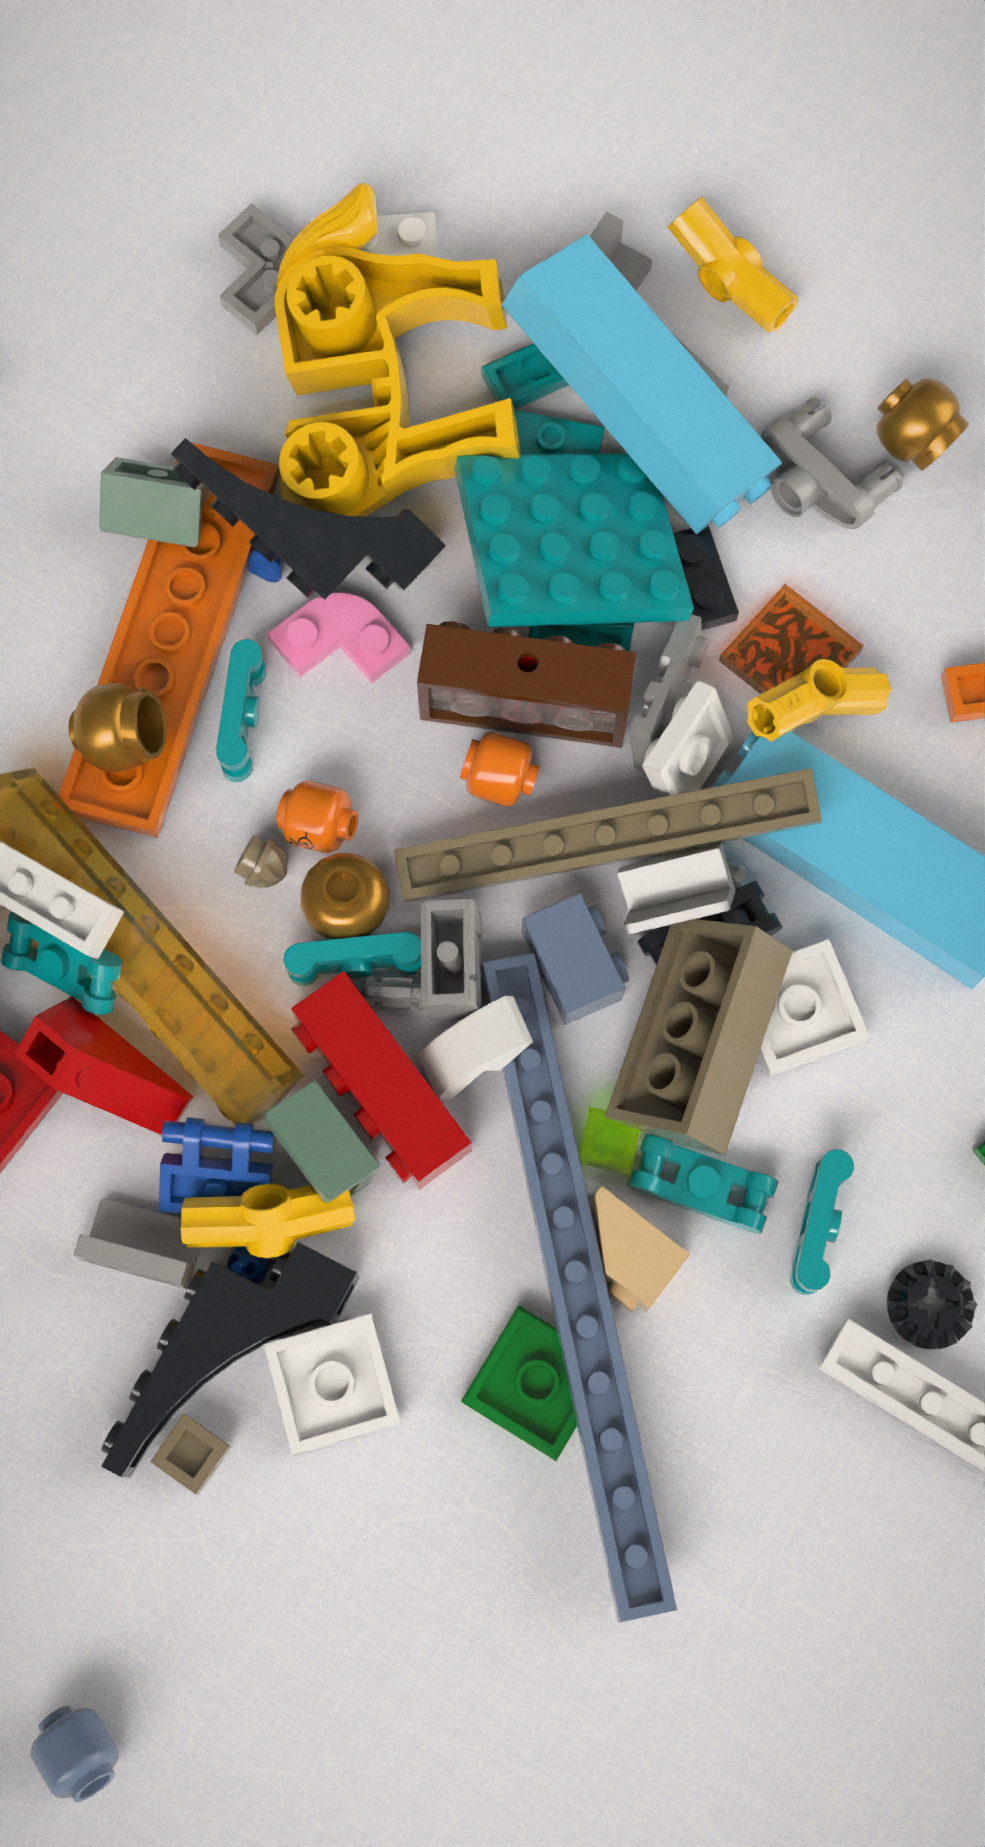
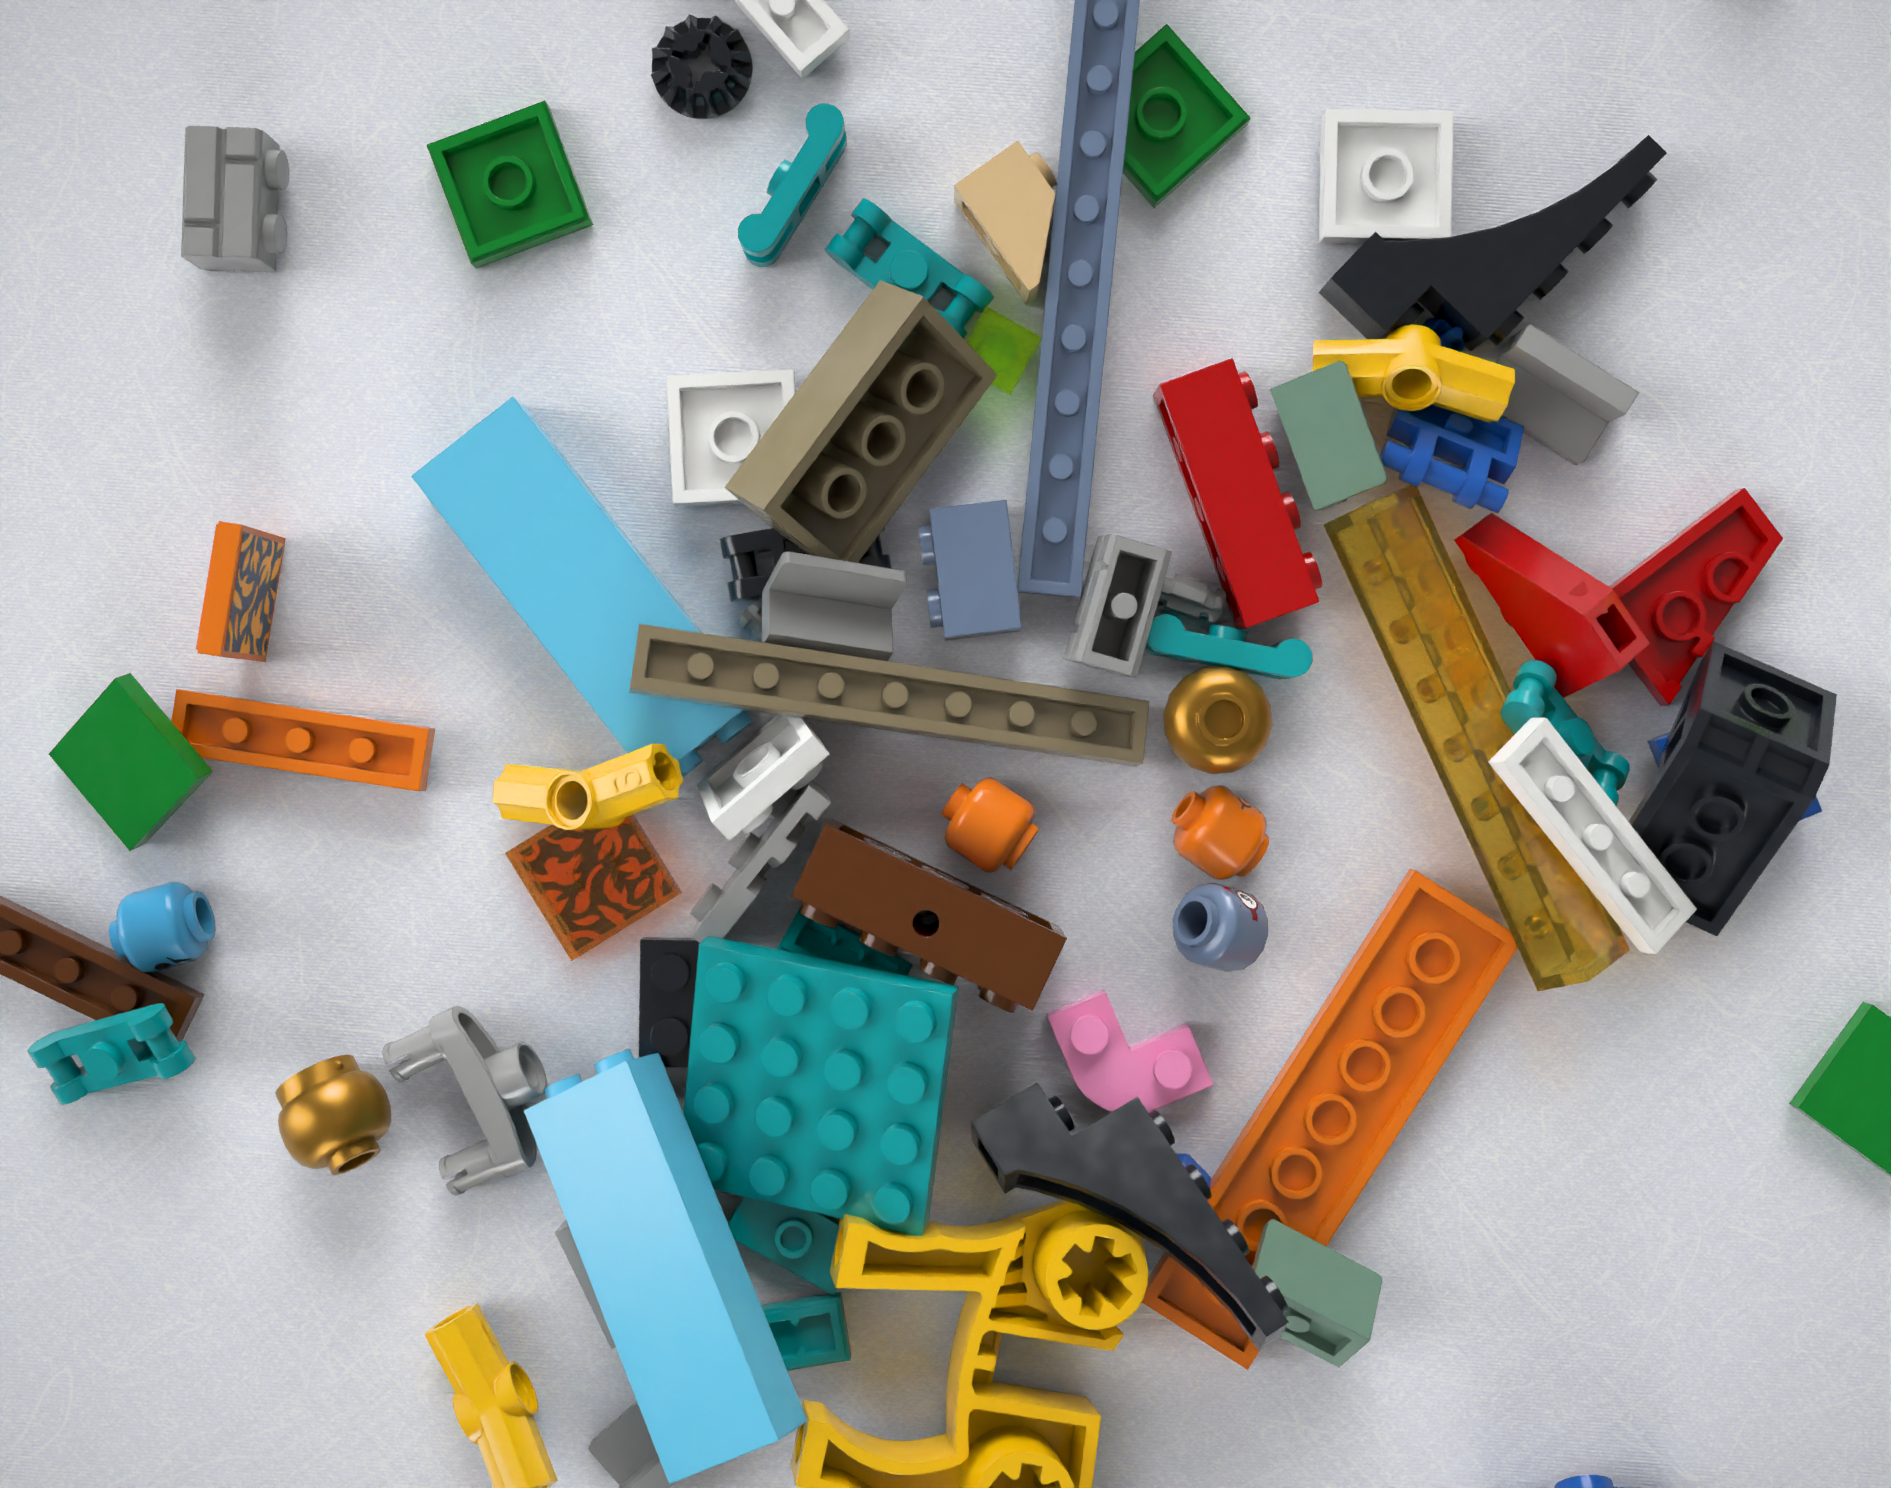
camera: 165 degrees left, 15 degrees up
(118, 727) = (1432, 1000): pearl gold piece -> none
(190, 1454) = (1559, 149): dark tan plate -> none
(239, 709) = (1274, 994): teal plate -> none
(262, 863) = (1299, 796): dark tan plate -> none
(296, 744) = (1220, 927): none -> sand blue head
(475, 1044) = (1120, 496): white slope -> none

